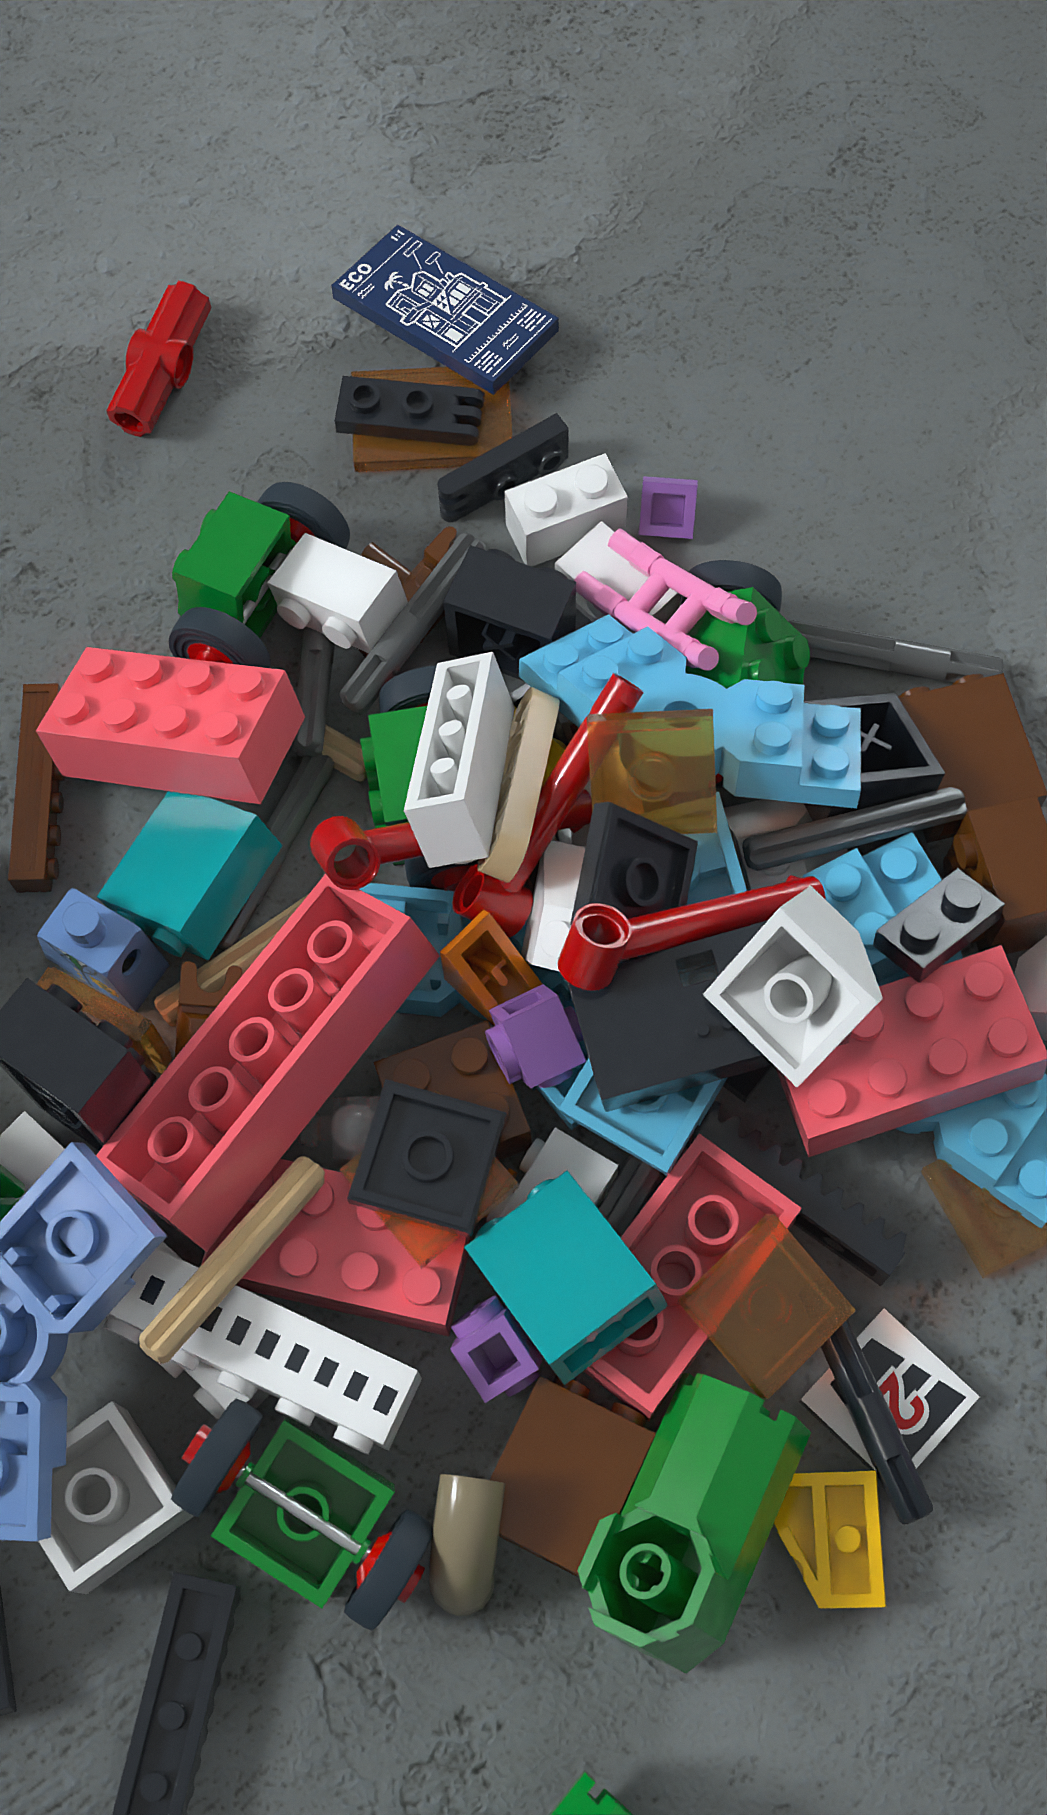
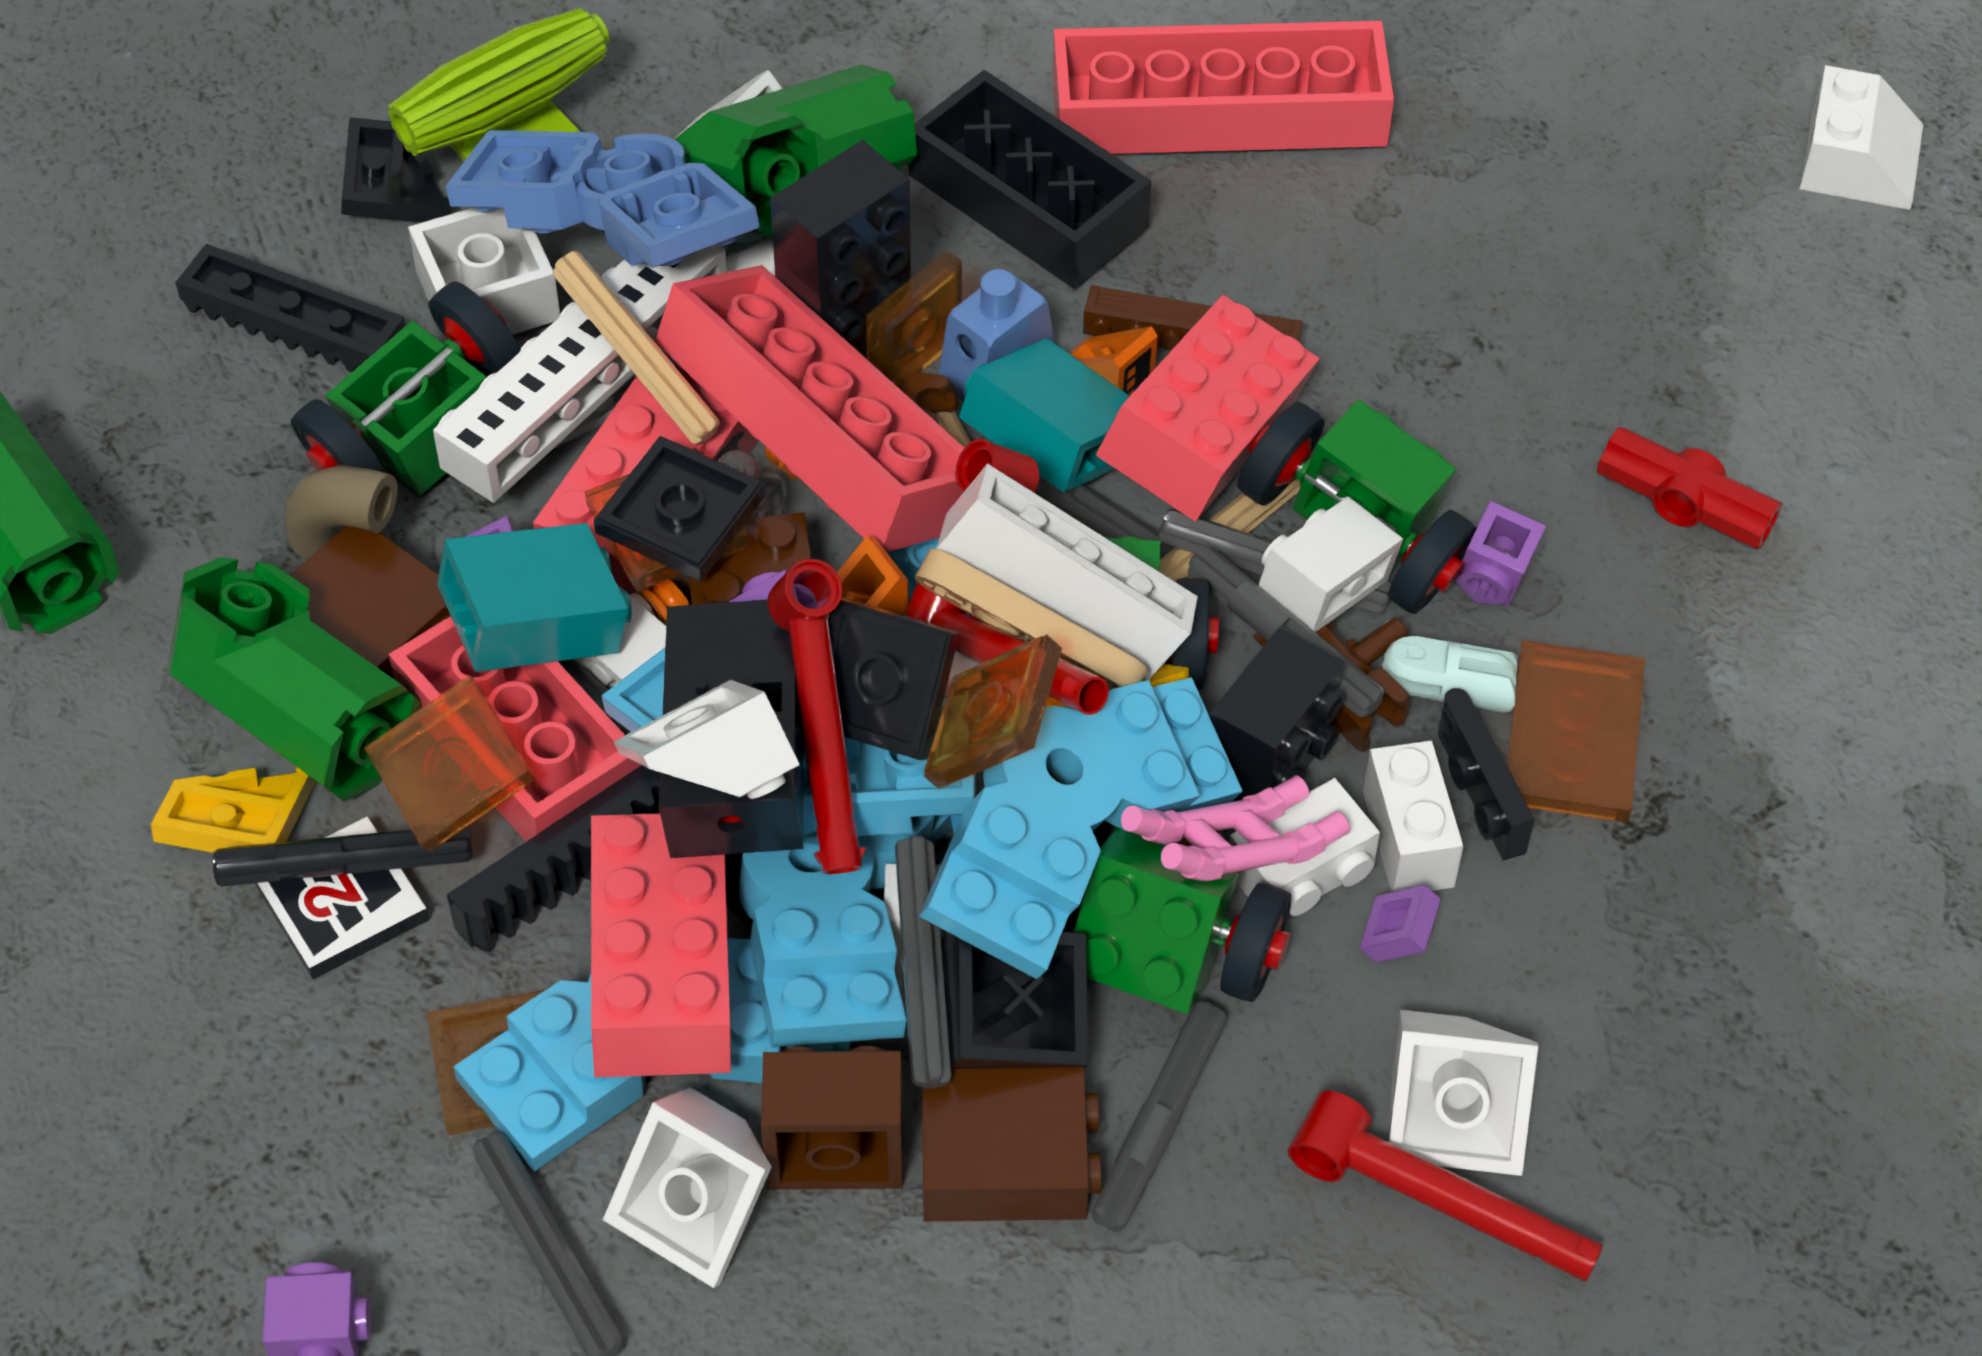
camera: 100 degrees right, 15 degrees down
(101, 840) = (1120, 357): none -> orange slope
(275, 461) = (1499, 555): none -> medium lavender brick
(403, 507) = (1434, 666): none -> light aqua arm
(409, 410) = (1575, 692): black hinge -> none
(445, 309) = (1716, 761): dark blue tile -> none
(810, 445) = (1461, 1092): none -> white slope
(880, 522) = (1337, 1139): none -> red piece
(938, 925) = (774, 978): plate -> none

